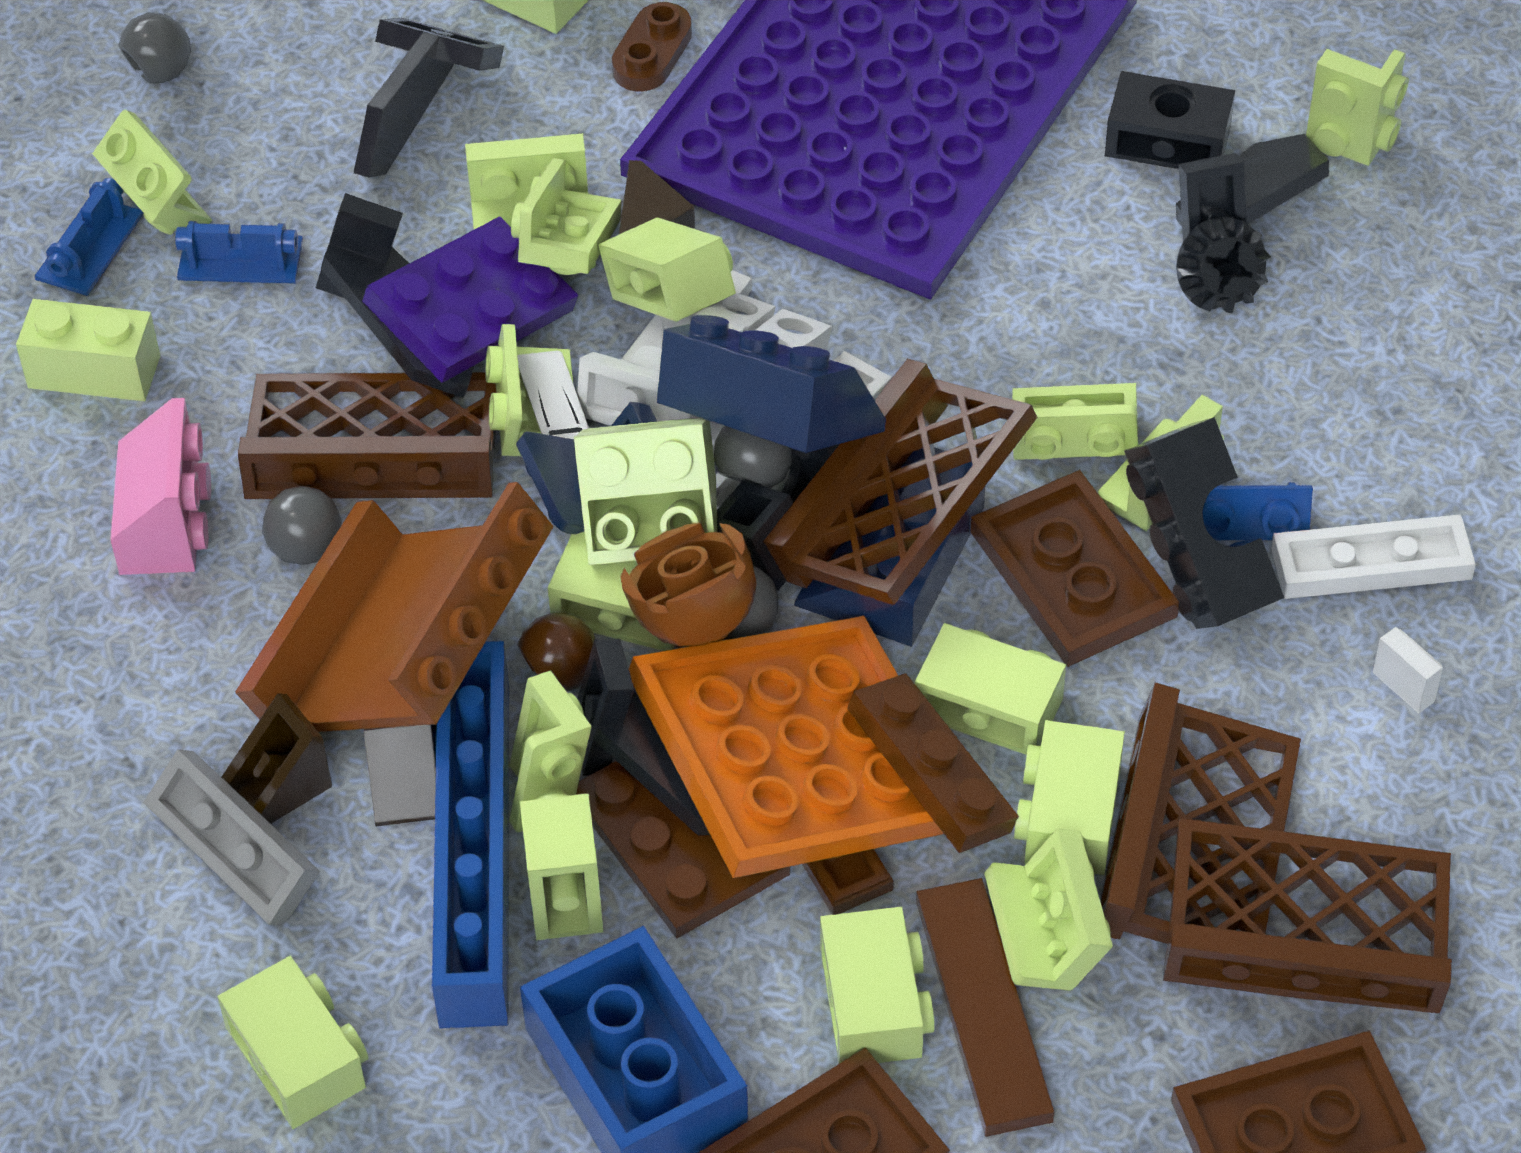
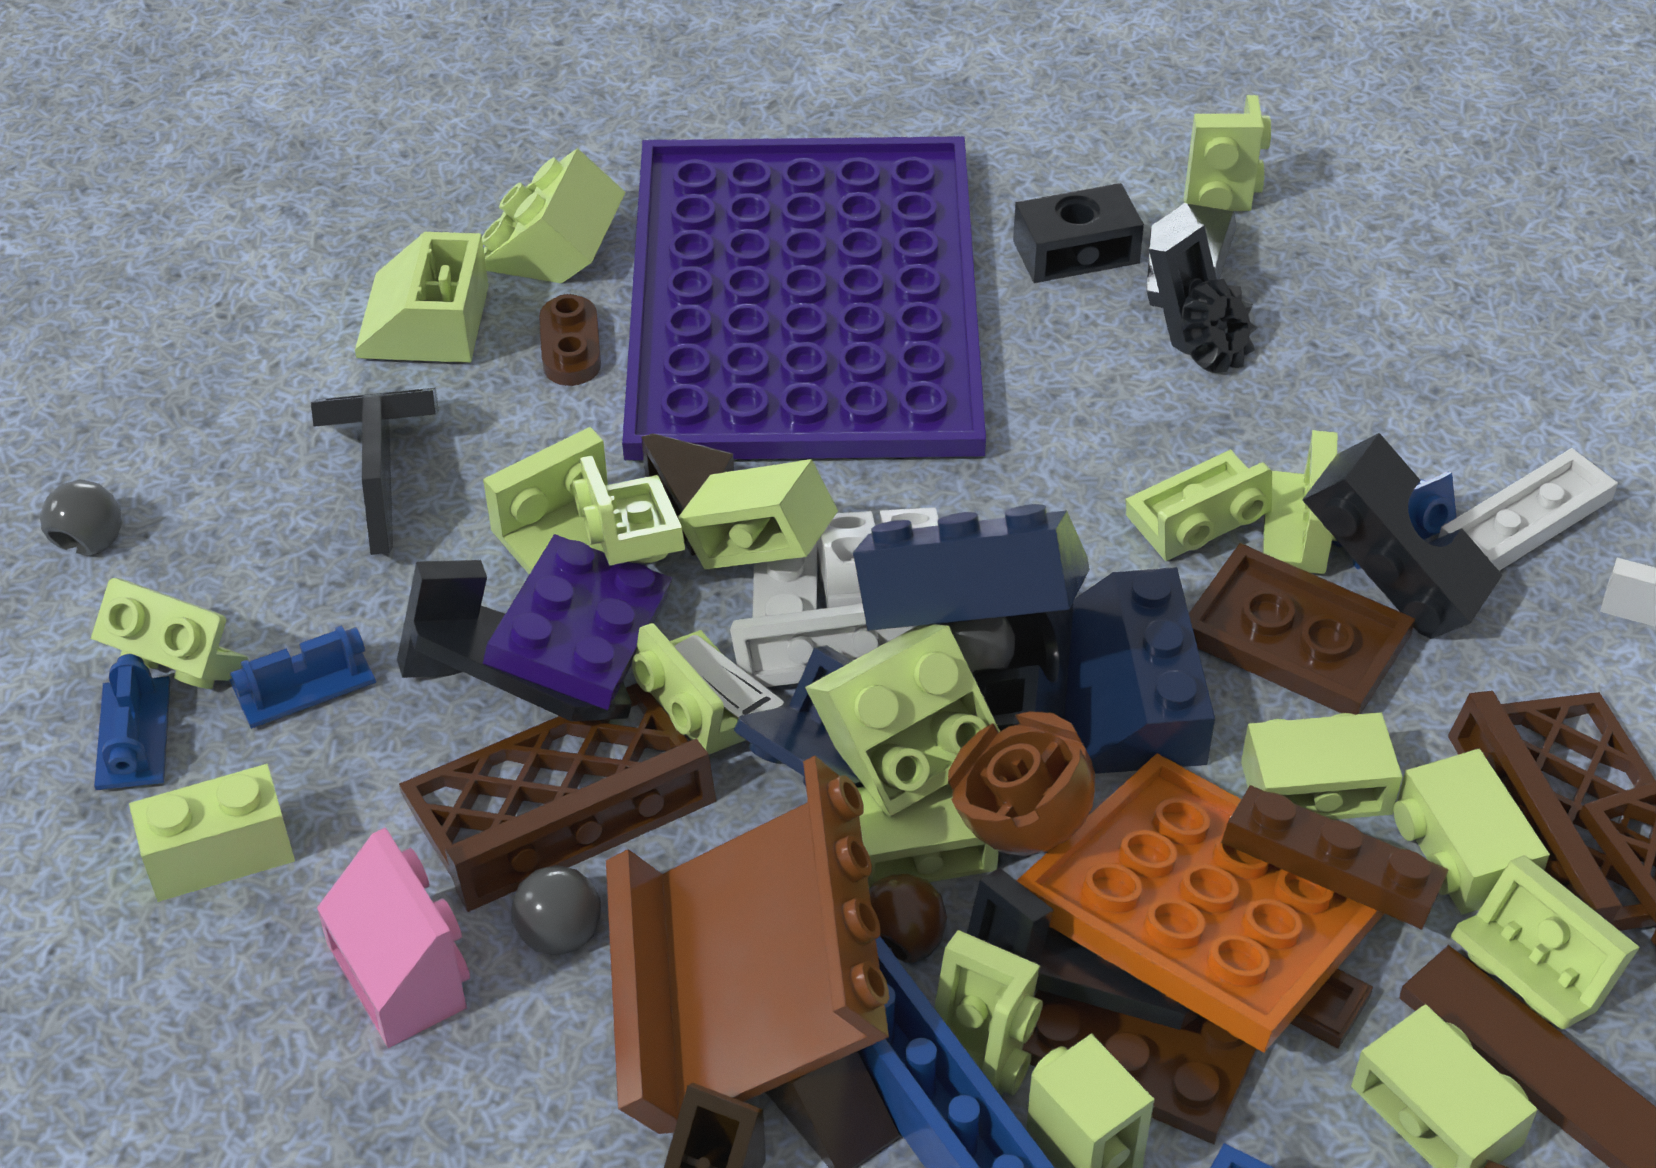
camera: 30 degrees left, 5 degrees down
(868, 467) = (1074, 634): reddish brown fence -> none

